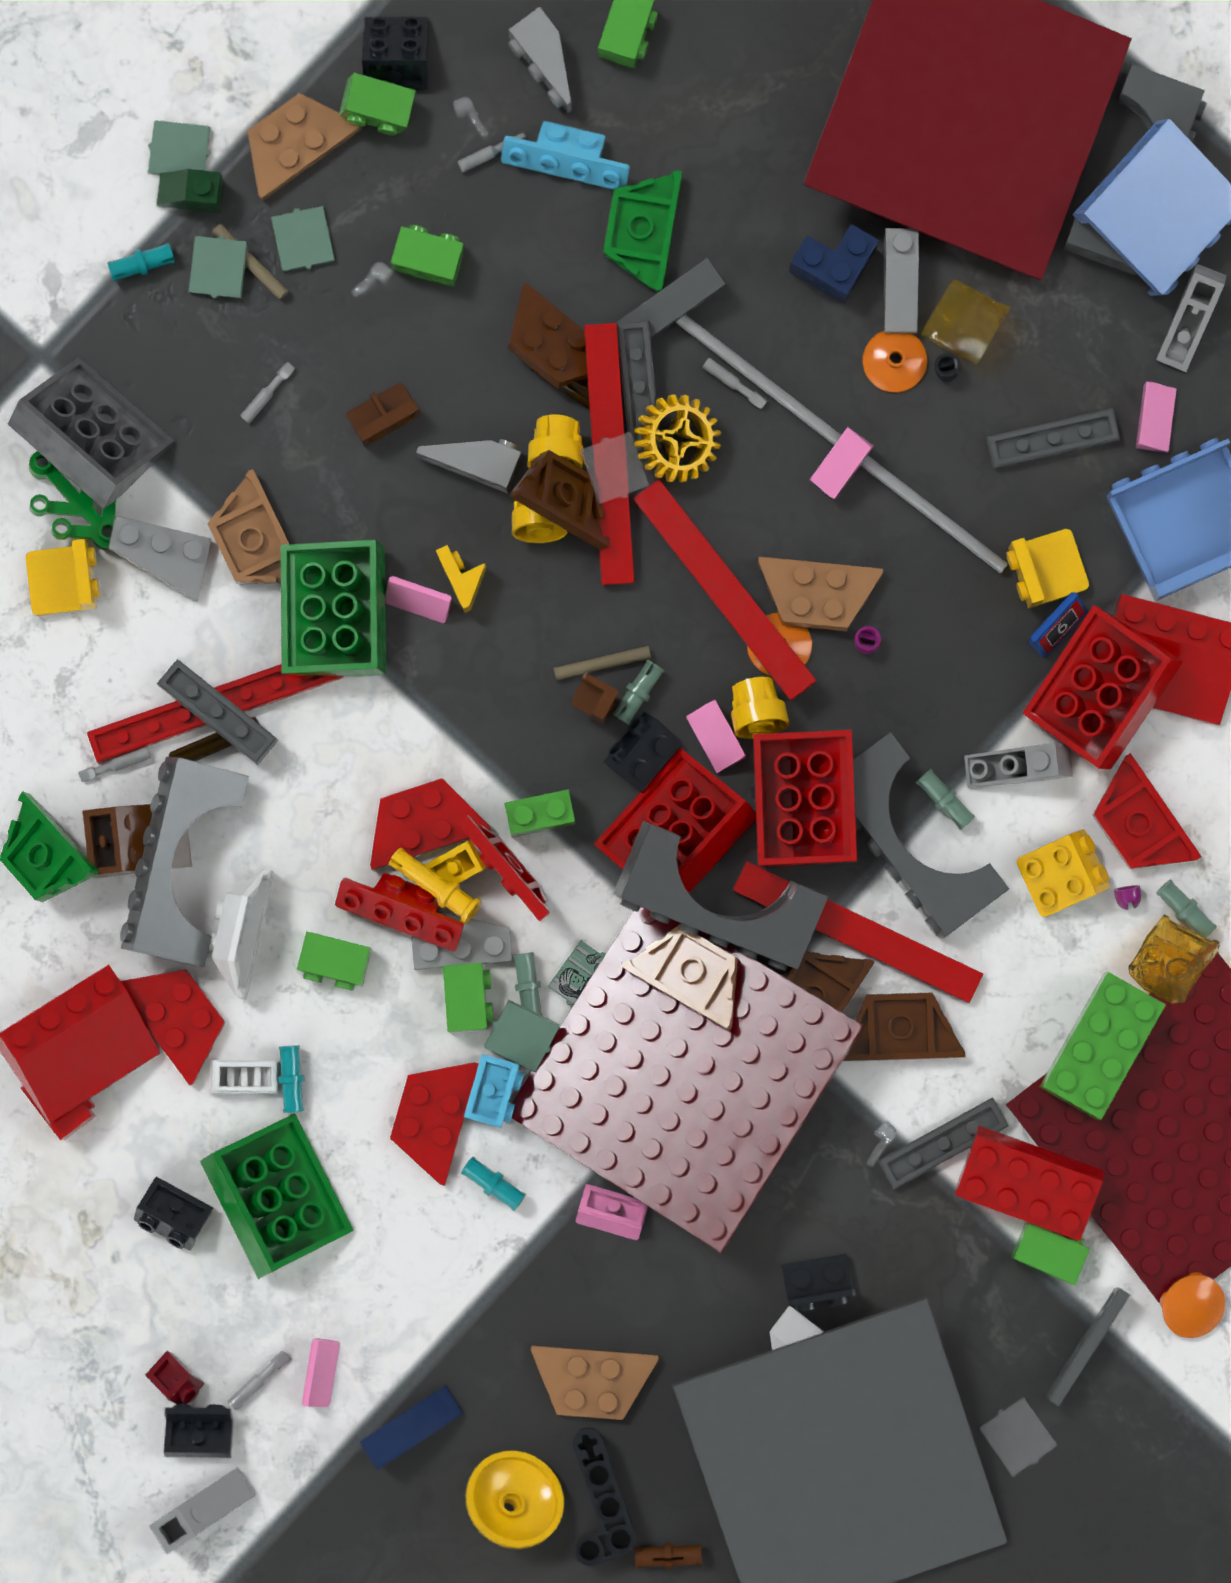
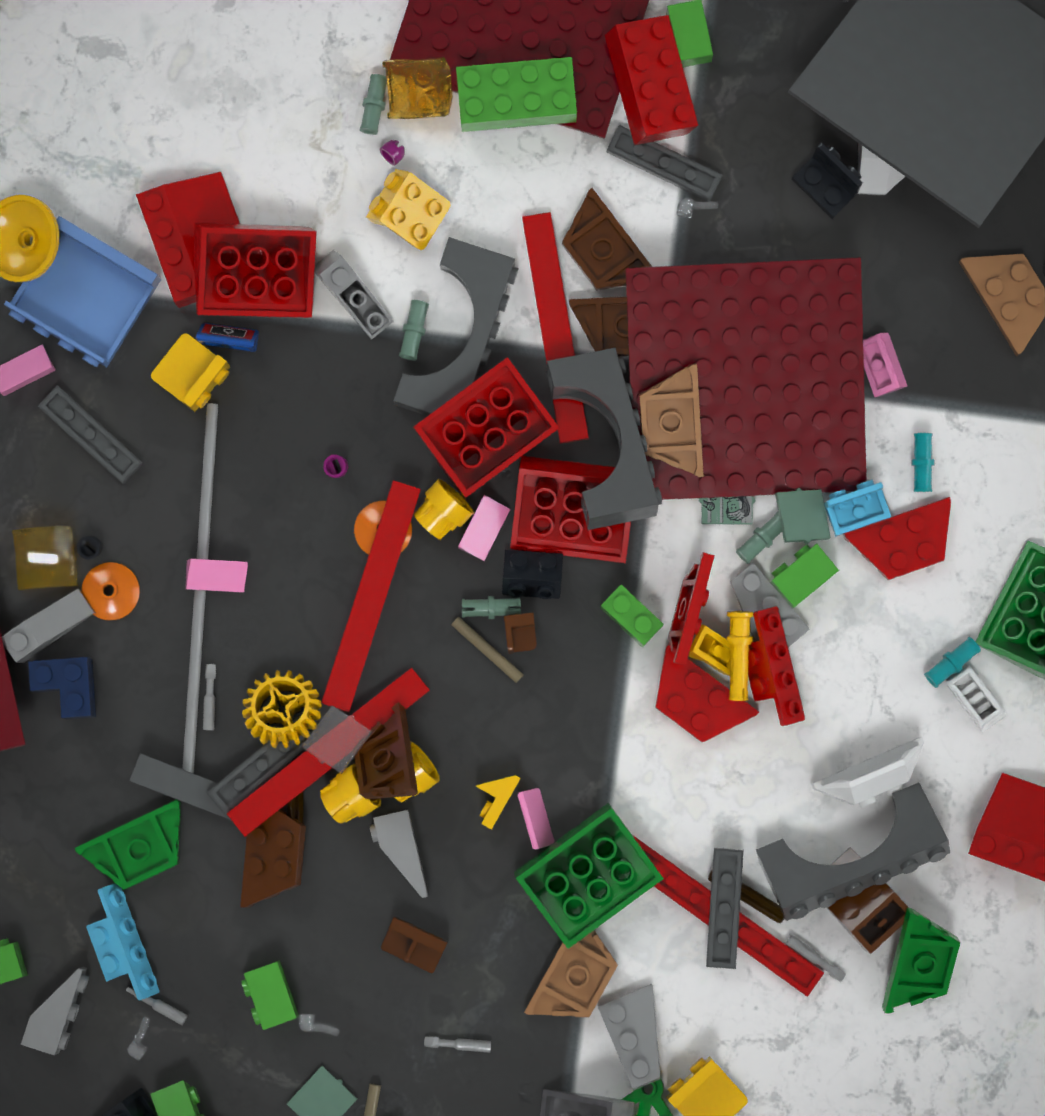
camera: 125 degrees left, 0 degrees up
(177, 1018) = (967, 778): red wing -> none
(333, 959) = (845, 692): bright green brick -> none
(817, 592) = (325, 527): medium nougat wing -> none
(1140, 821) = (332, 179): red wing -> none

